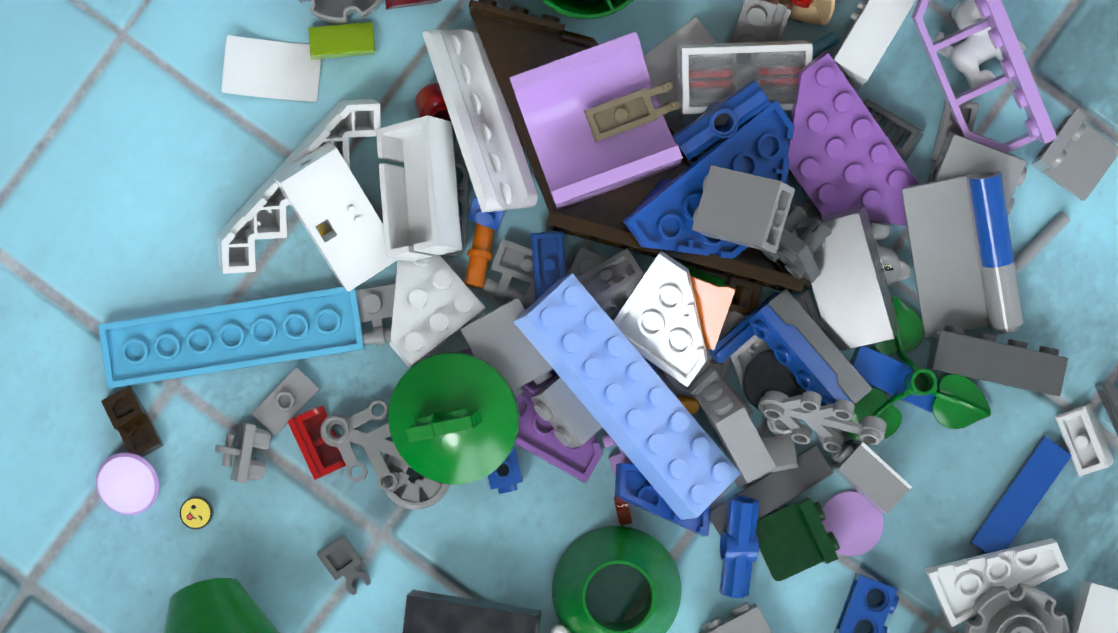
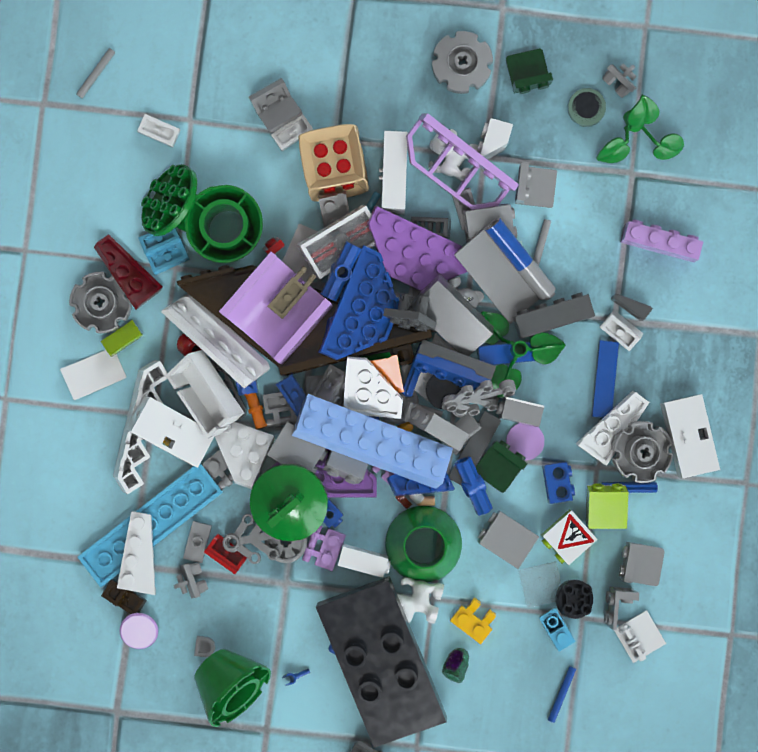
camera: 30 degrees left, 0 degrees up
(182, 381) = (137, 563): none -> white wing
(196, 512) = (183, 625): light yellow tile -> none
(210, 561) = (204, 646): none -> light grey tile
(342, 560) = (272, 607): dark grey plate -> none
(473, 521) = (329, 550): none -> lavender plate
(516, 567) = (364, 561): none -> white brick
(643, 25) = (273, 245): none -> red plate
(648, 524) = (421, 500): none -> arm
(743, 209) = (377, 312): light grey brick -> none
(1059, 49) = (495, 137): none -> white slope

